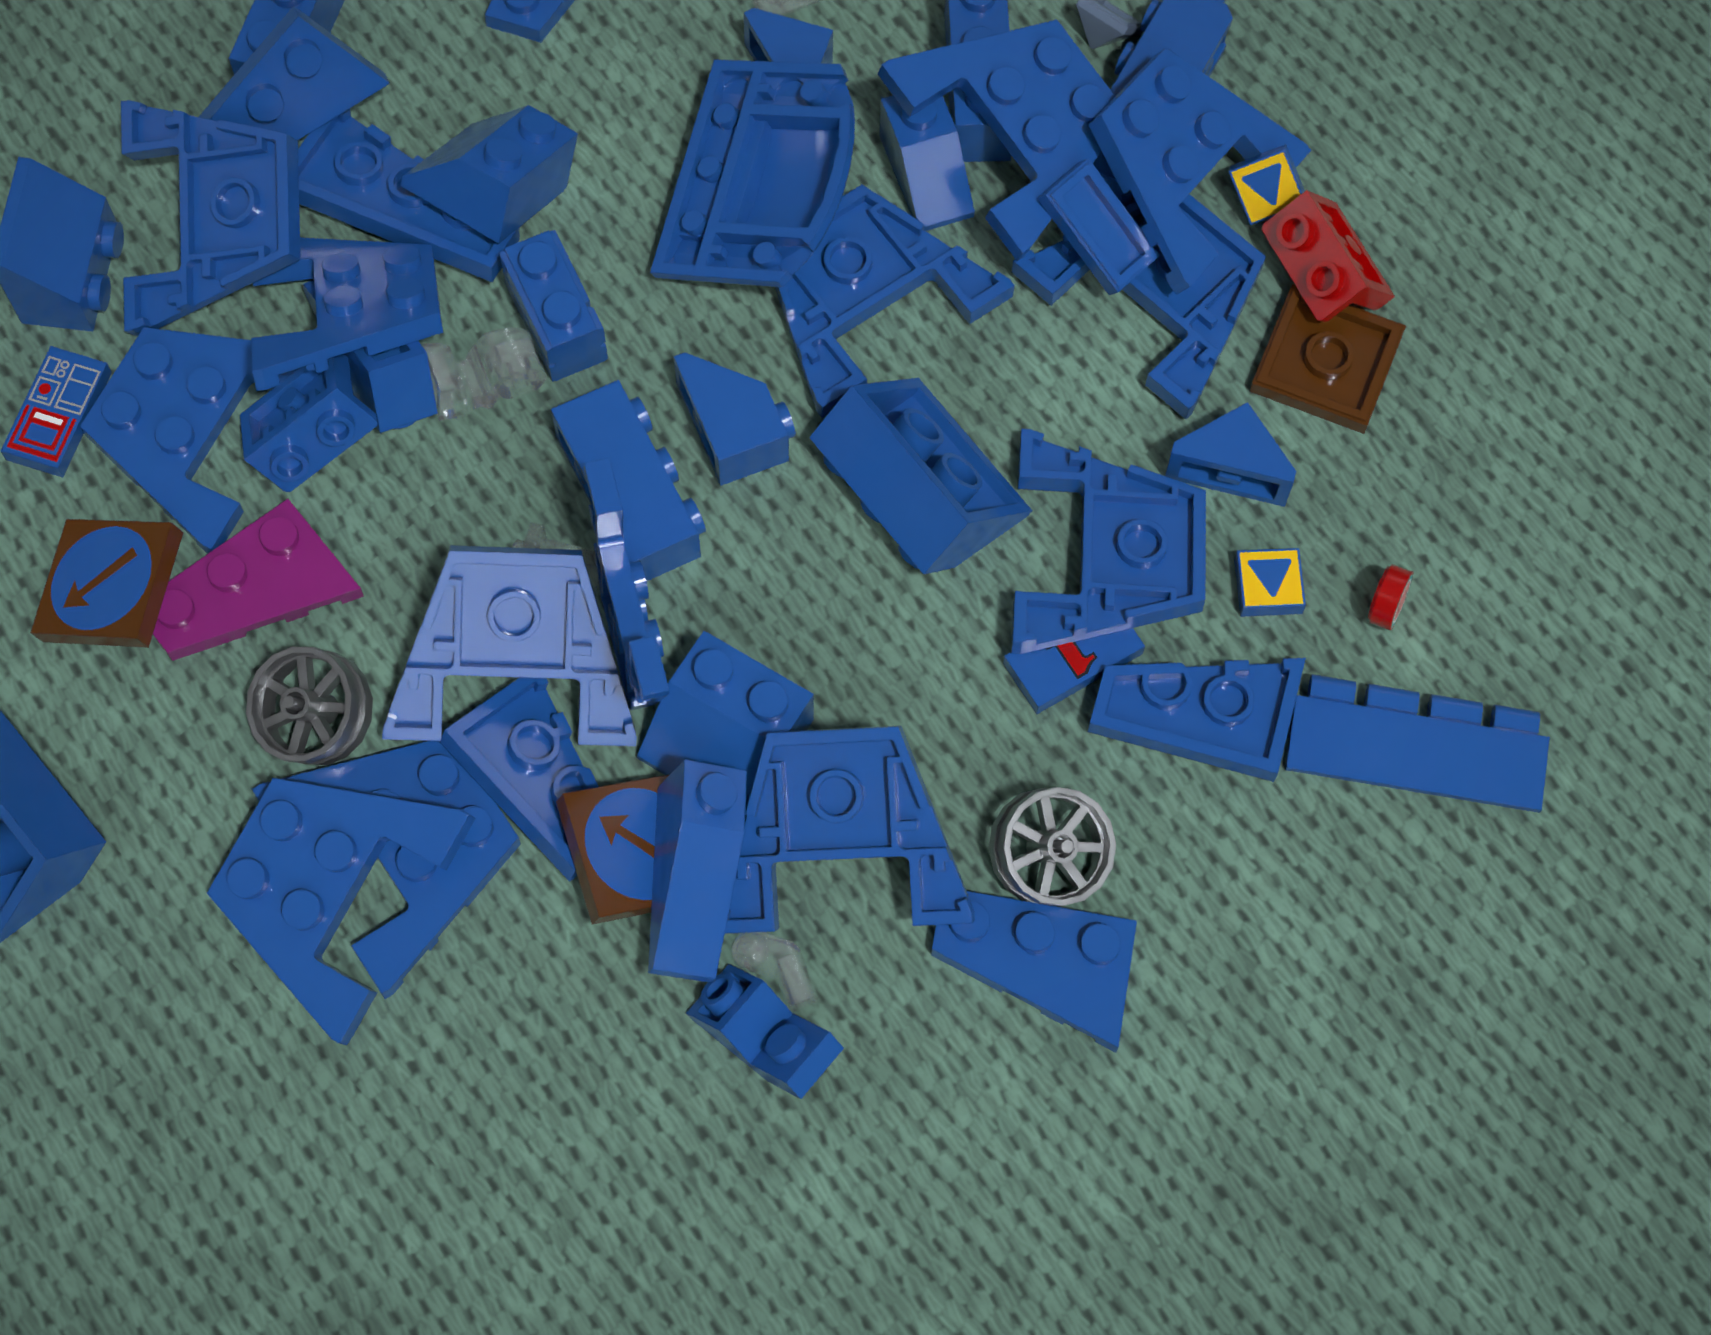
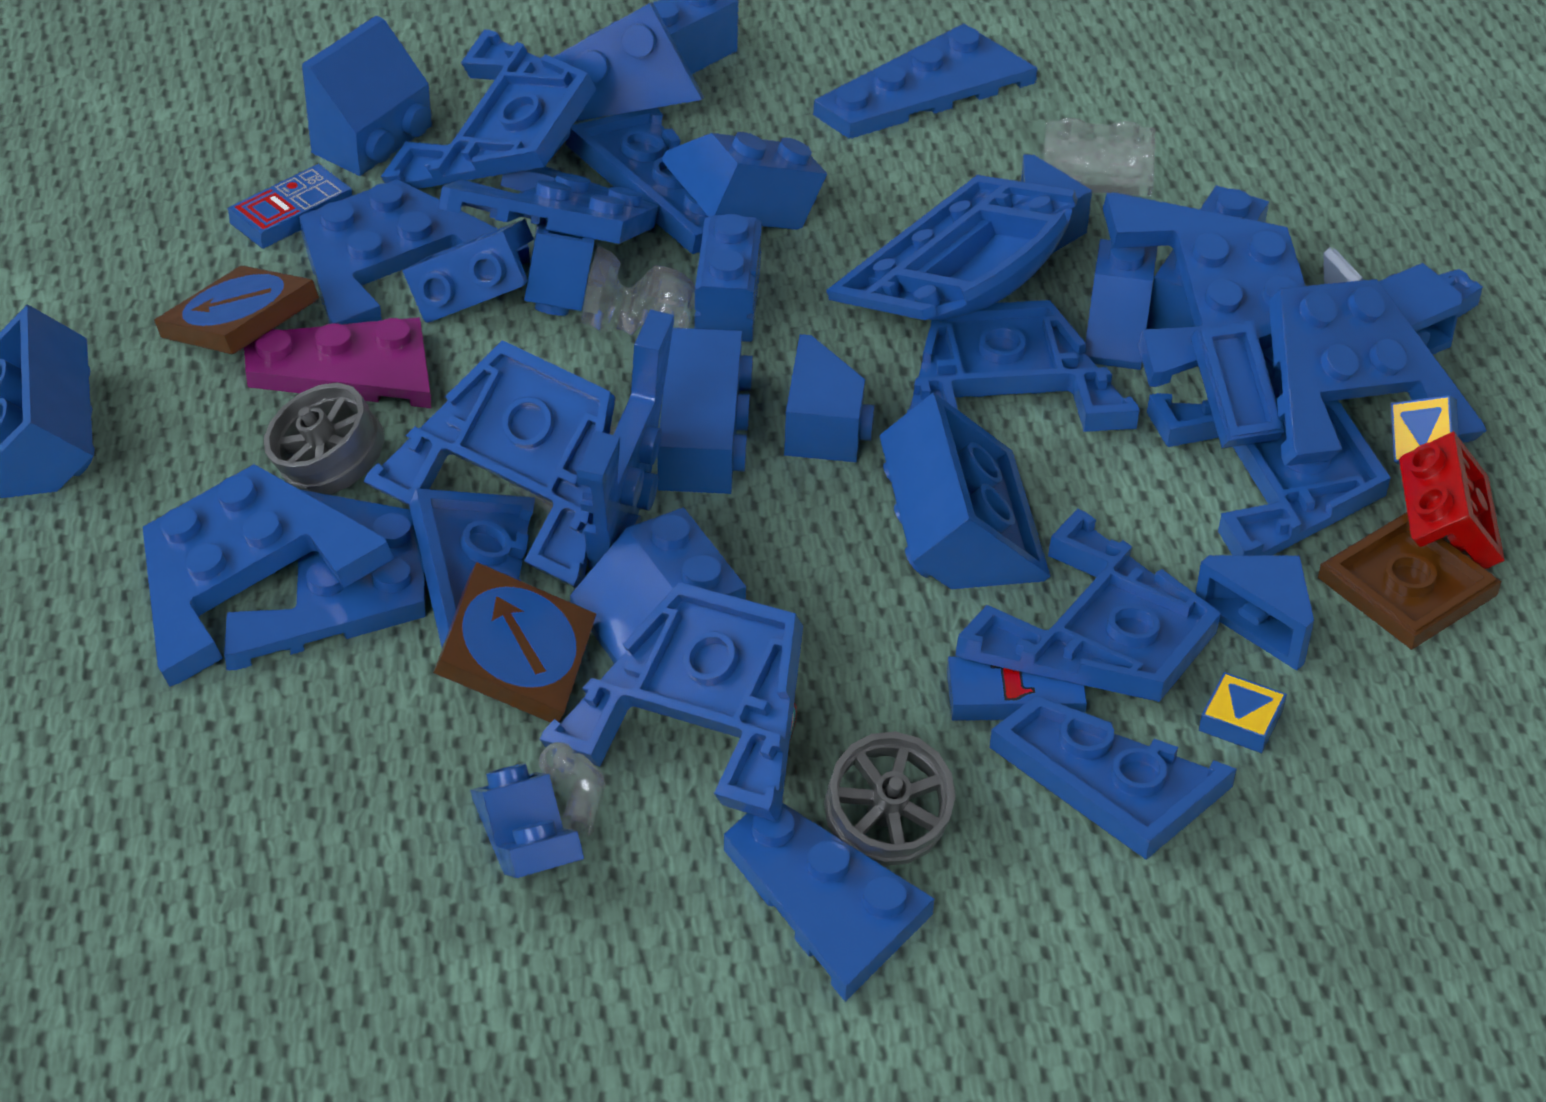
camera: 30 degrees right, 25 degrees down
(695, 867) = (549, 665): blue slope -> none
(1390, 596) = (1354, 763): red tile -> none
(1417, 753) = (1293, 888): blue windscreen -> none

